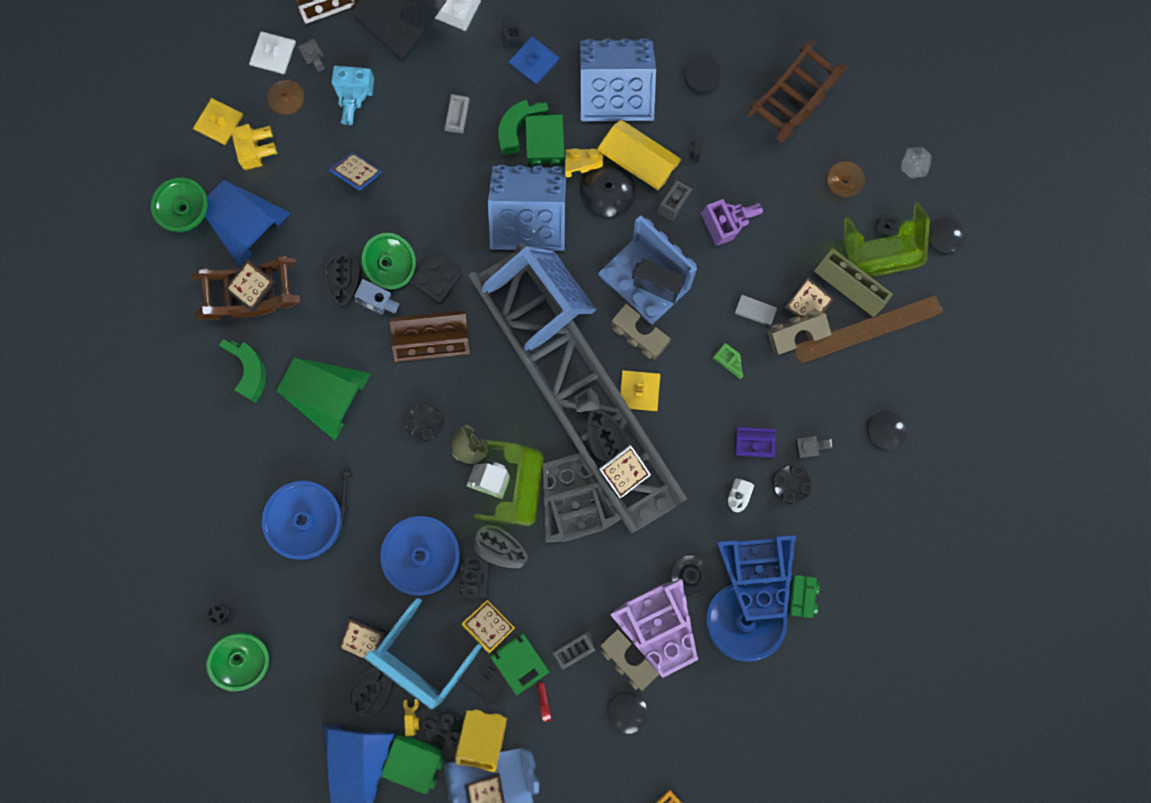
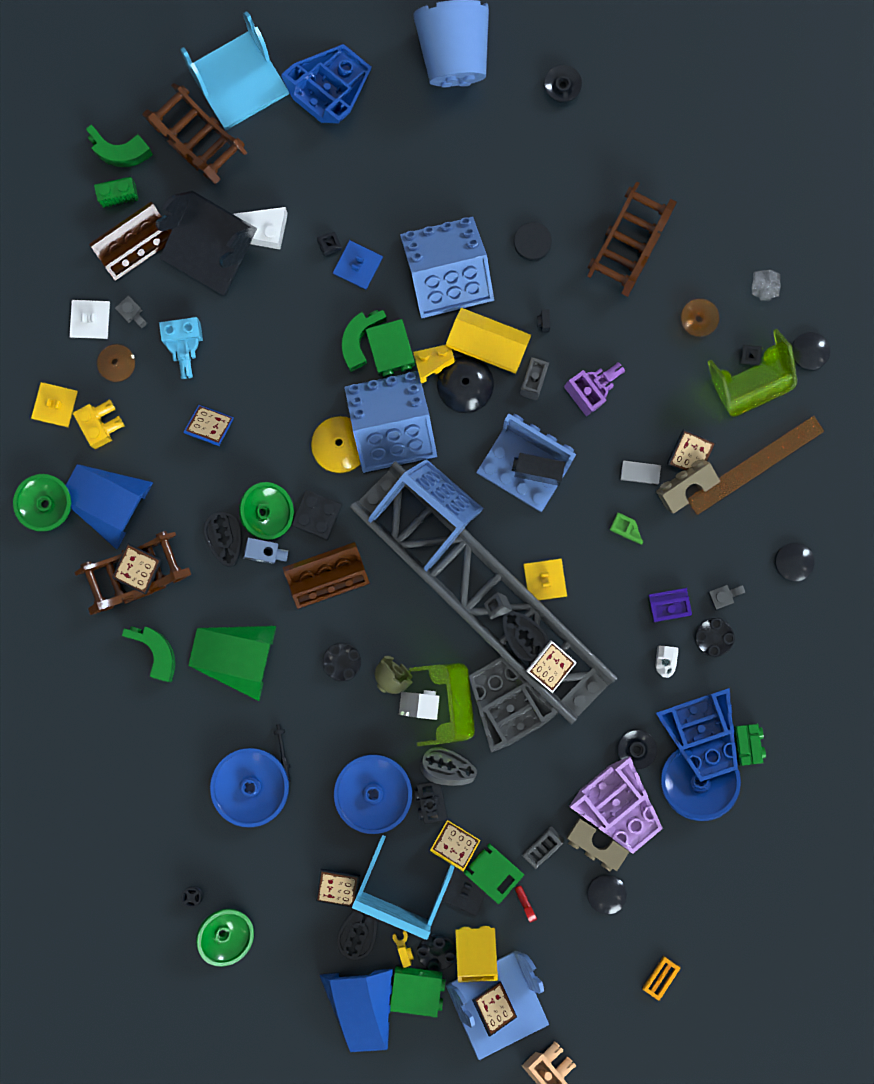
camera: 10 degrees left, 5 degrees up
(457, 113) = (294, 340): light grey tile -> none
(464, 227) = (329, 455): none -> yellow dish
(651, 344) = (516, 518): dark tan arch -> none
(853, 282) = (730, 423): olive brick -> none

